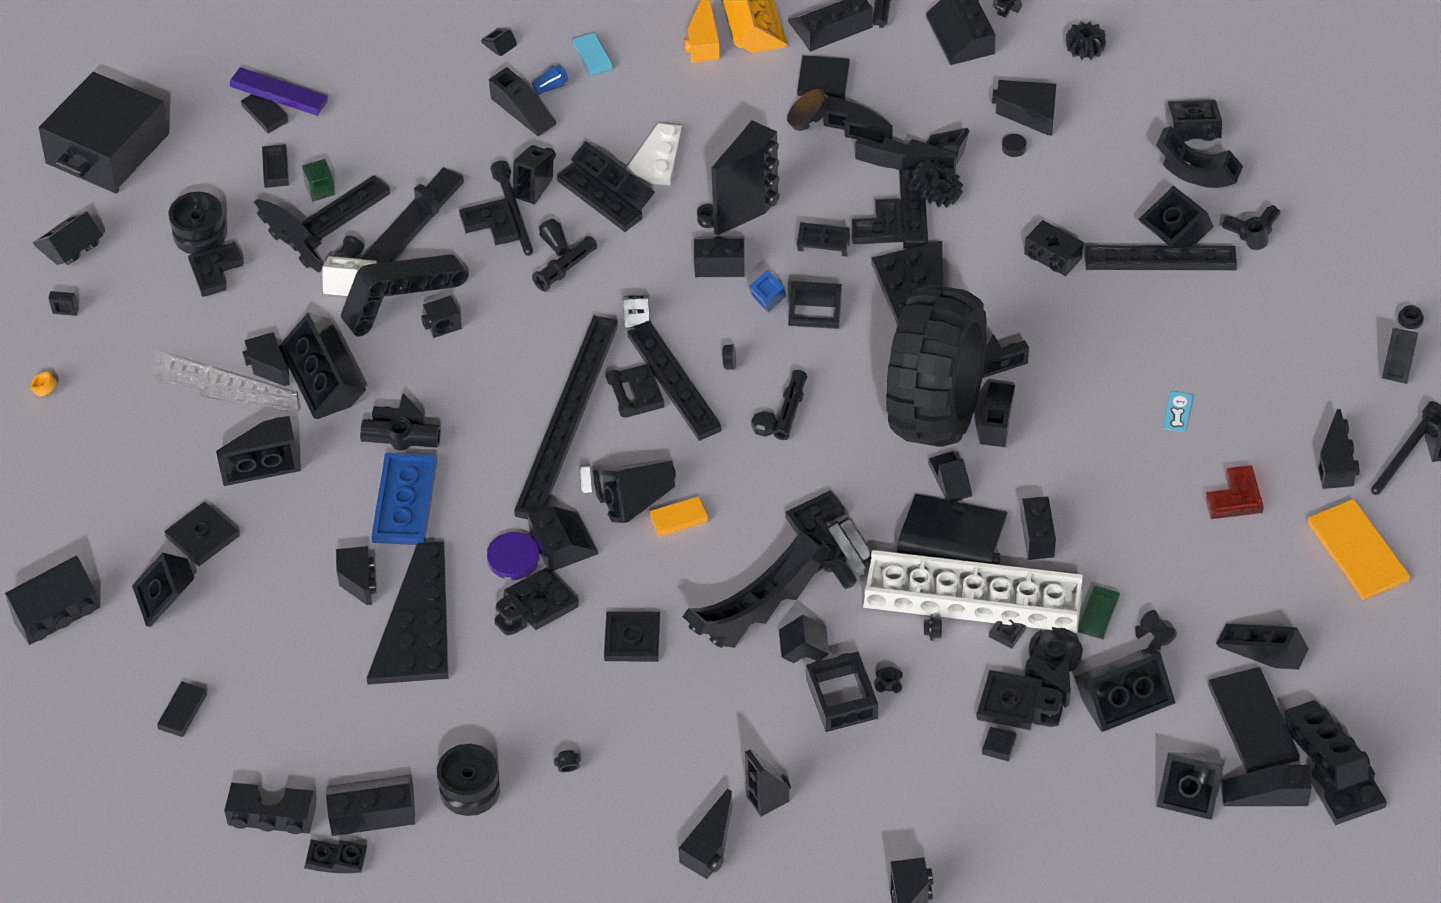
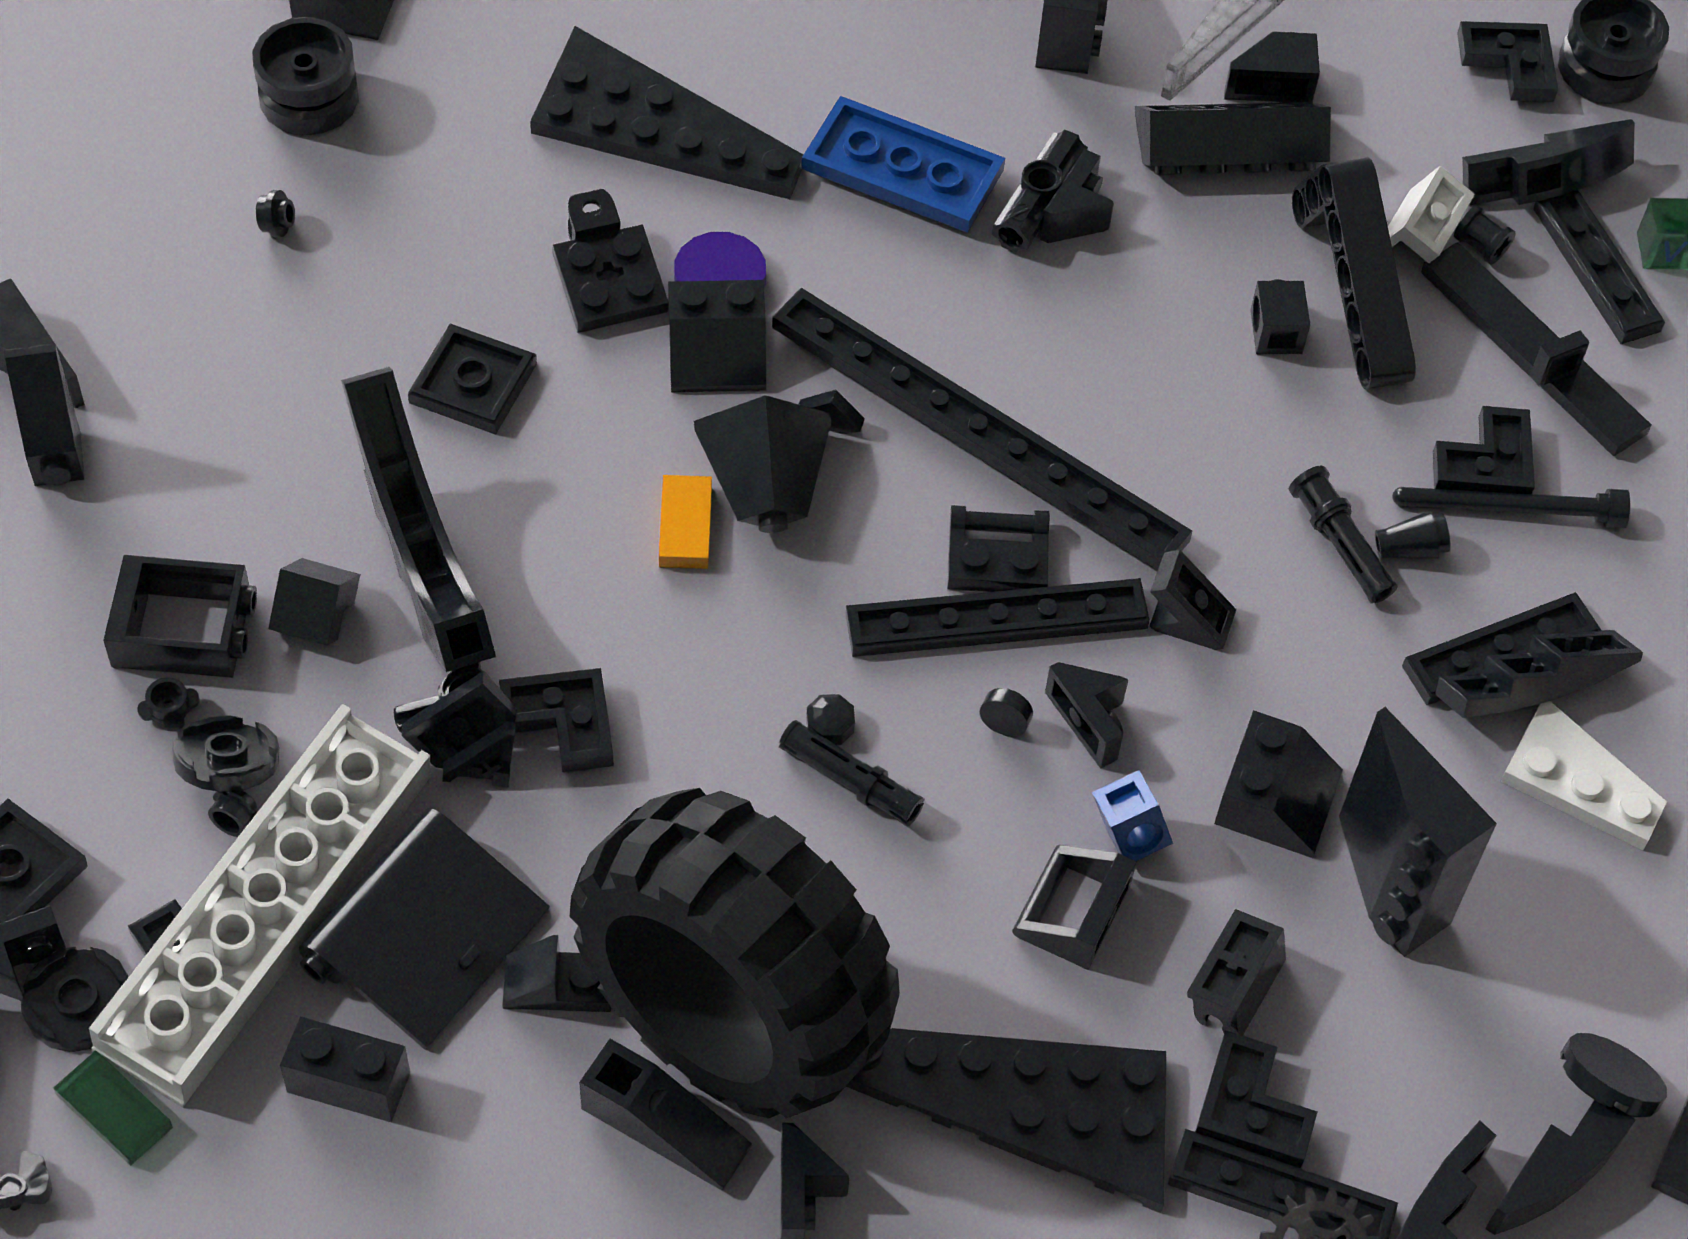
camera: 105 degrees right, 5 degrees up
(355, 571) = (777, 61): black slope -> none
(532, 173) = (1585, 543): black torso -> none
(713, 329) = (1086, 703): none -> black slope
(907, 638) = (225, 754): none -> black tile

